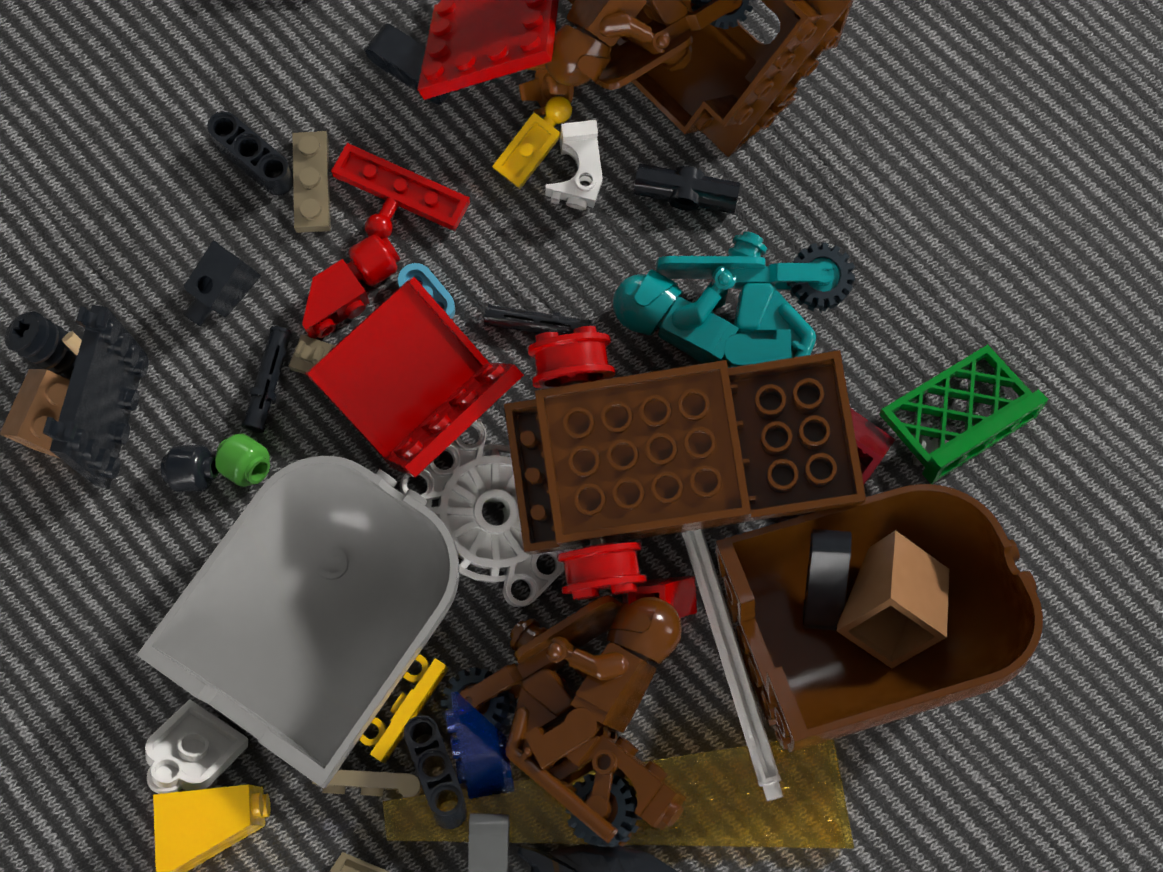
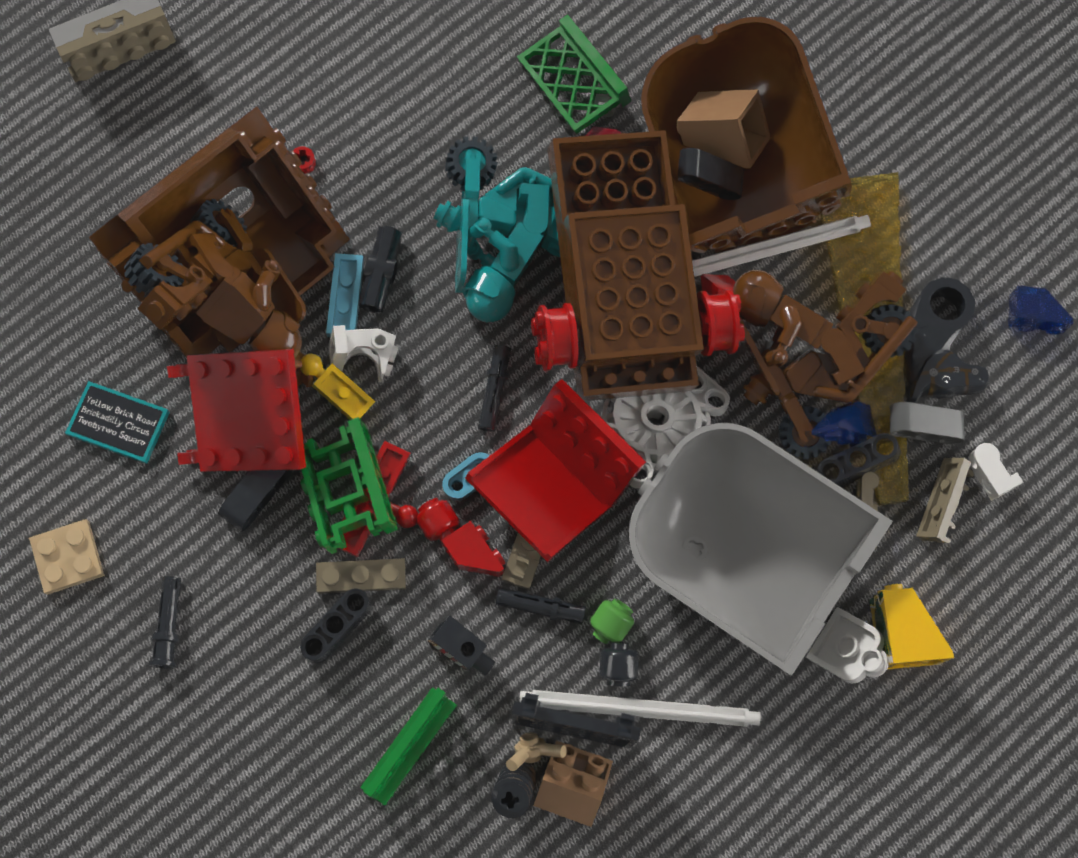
camera: 90 degrees left, 0 degrees up
(106, 232) = (408, 746): none -> green fence
(138, 498) = (646, 708): none -> white piece
(414, 174) = (365, 478): none -> green fence
(657, 149) = (345, 292): none -> medium azure plate
(835, 95) = (309, 166): none -> red bush

